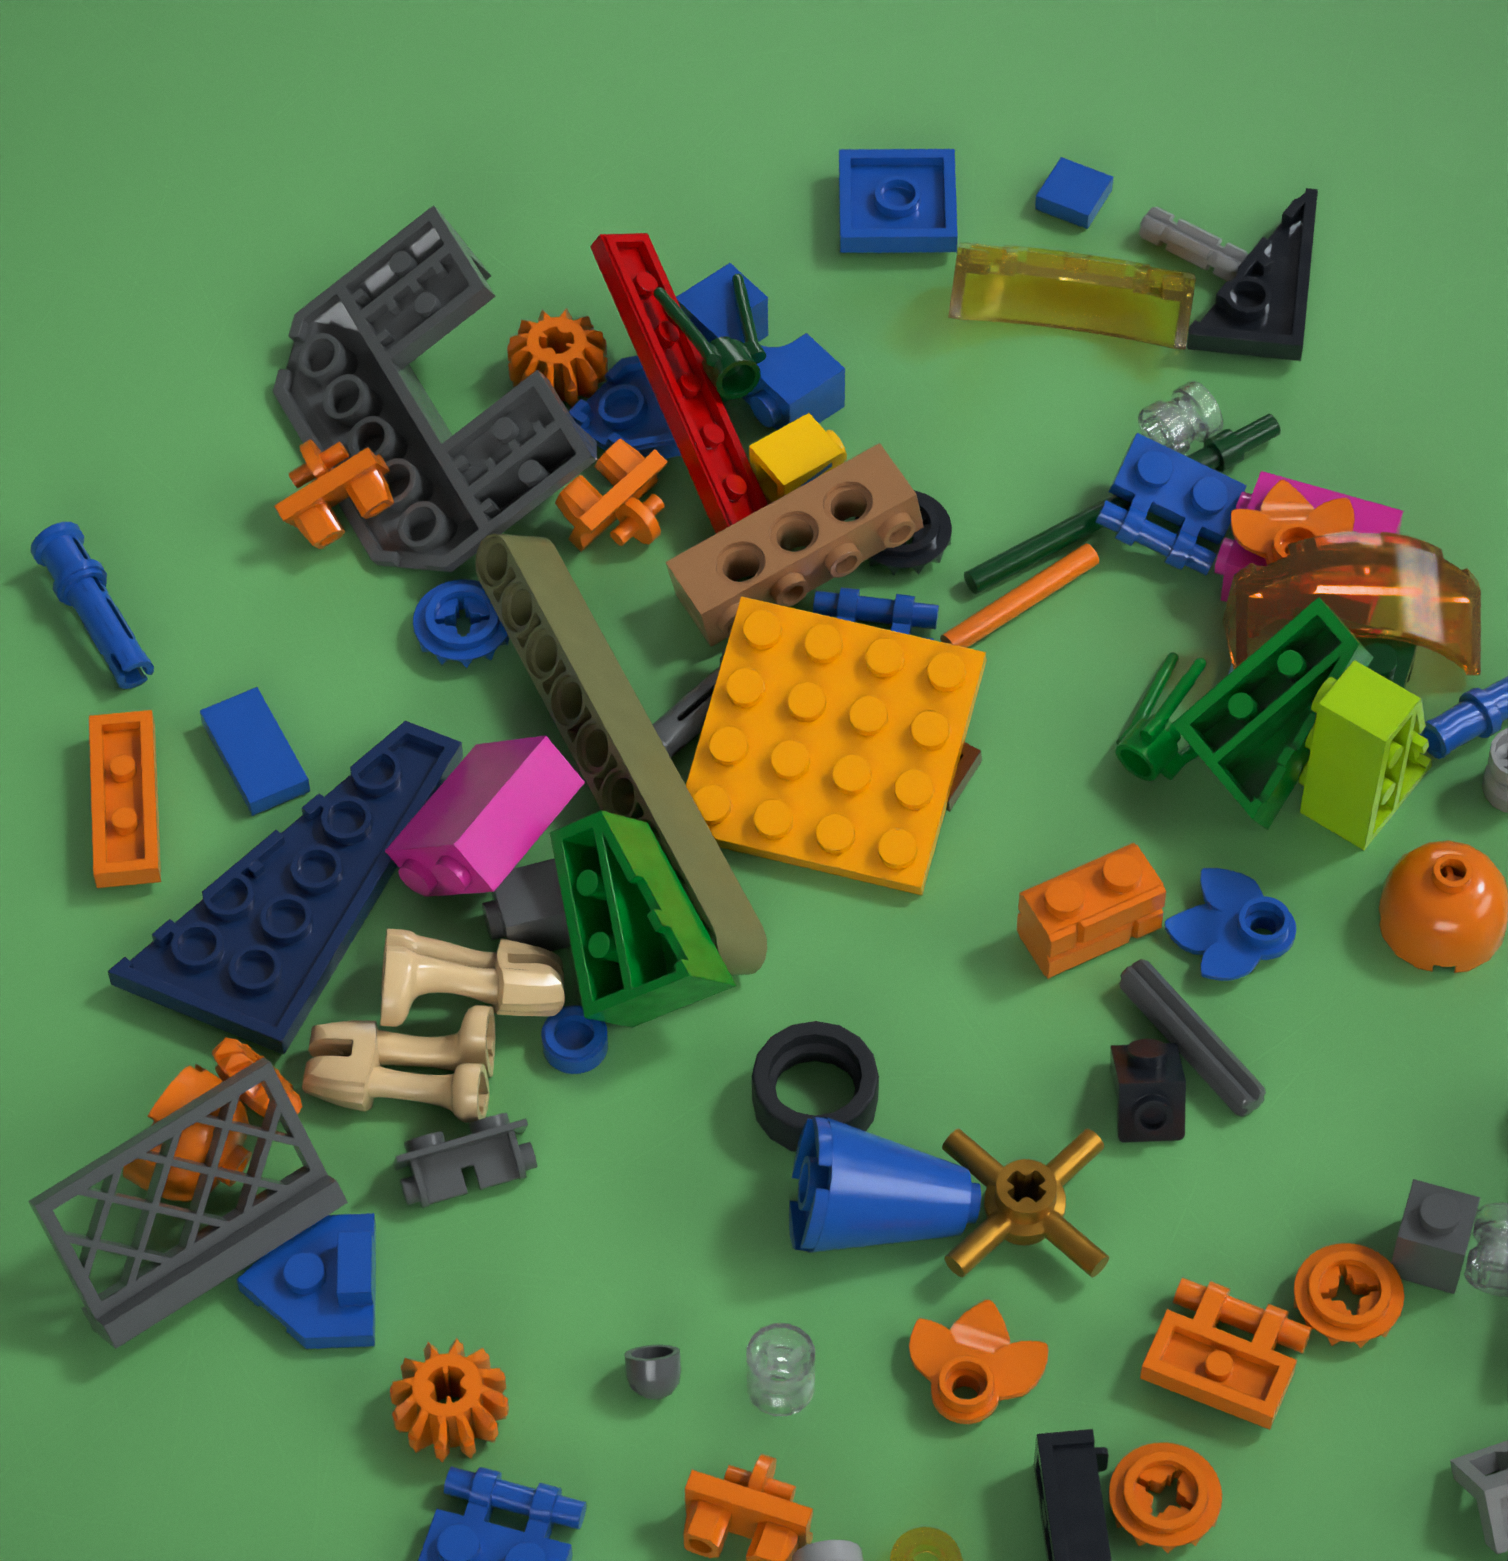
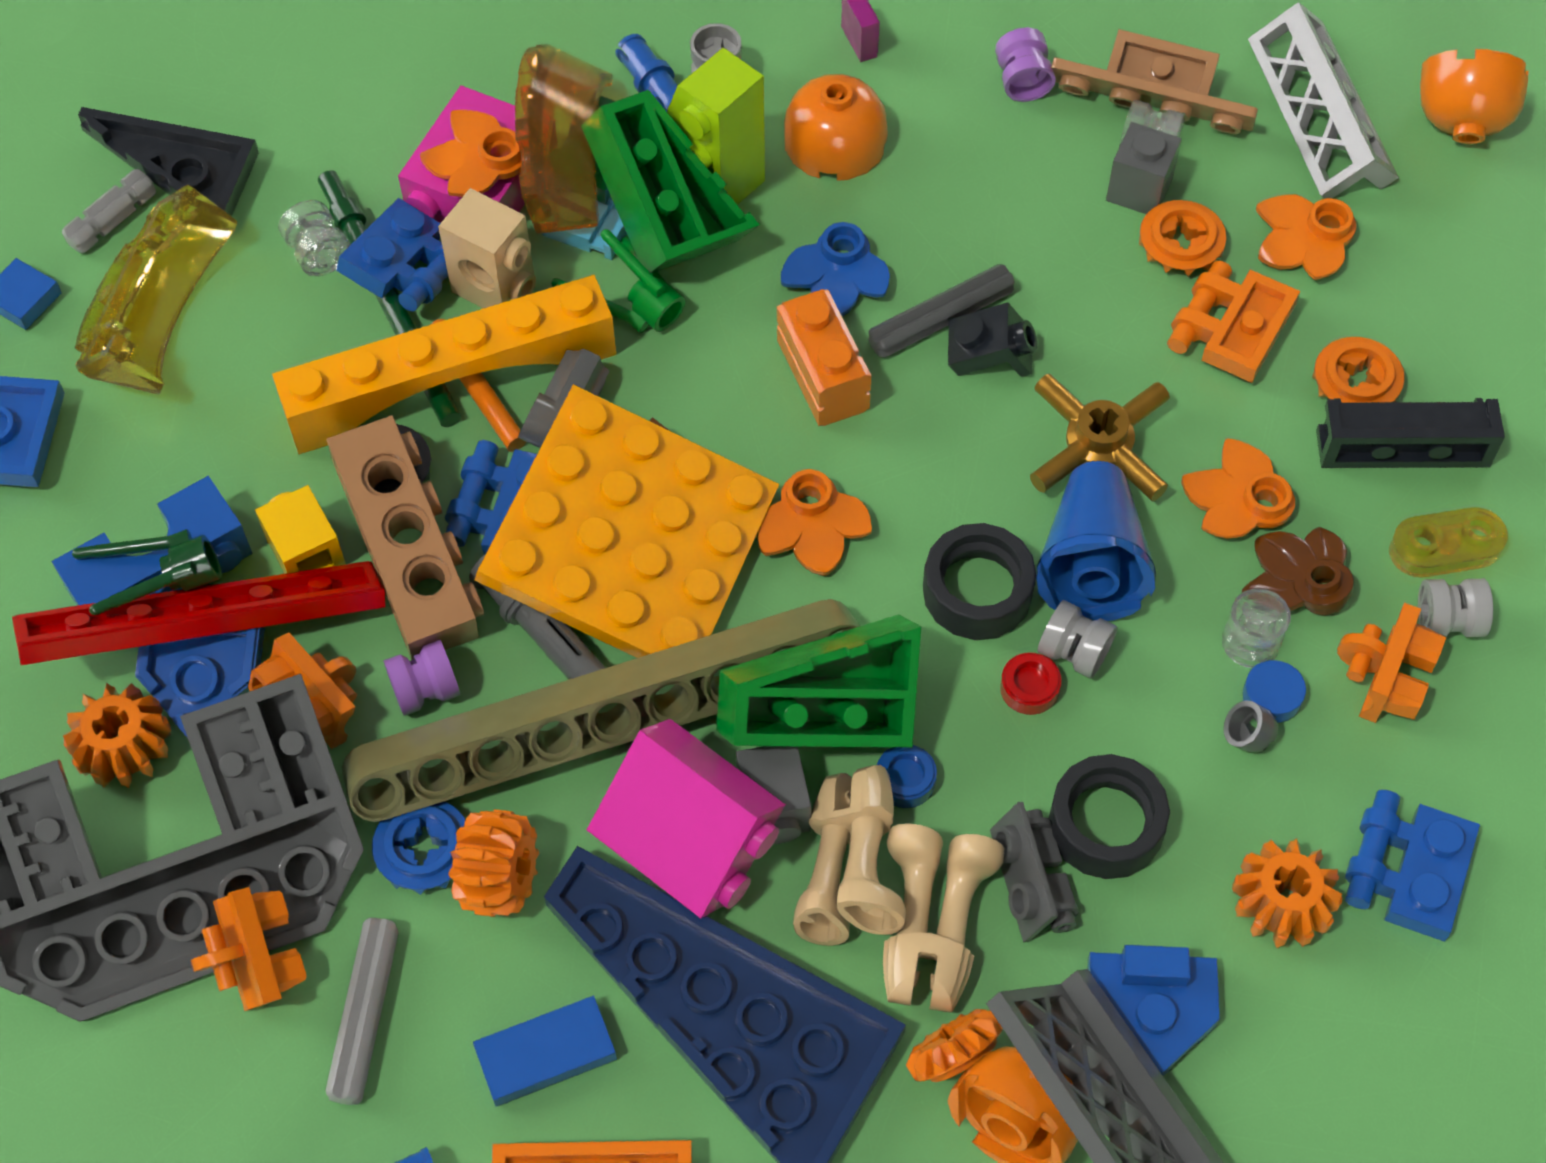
camera: 85 degrees left, 5 degrees up
(289, 599) = (362, 1011): none -> light grey axle
(431, 668) = (494, 863): none -> orange gear
(524, 1180) = (1118, 774): none -> black tyre
(646, 597) = (423, 677): none -> medium lavender wheel
(698, 1153) = (1030, 683): none -> red tile
(709, 1400) = (1275, 687): none -> blue tile
(750, 1182) = (1077, 639): none -> light grey wheel
(871, 1428) = (1299, 565): none -> reddish brown plate
(872, 927) = (813, 529): none -> orange plate
(1009, 676) = (575, 368): none -> dark grey piece
(1085, 639) = (358, 383): none -> light orange arch
(1165, 566) = (487, 251): none -> tan brick
(1375, 1434) = (1301, 234): none -> orange plate

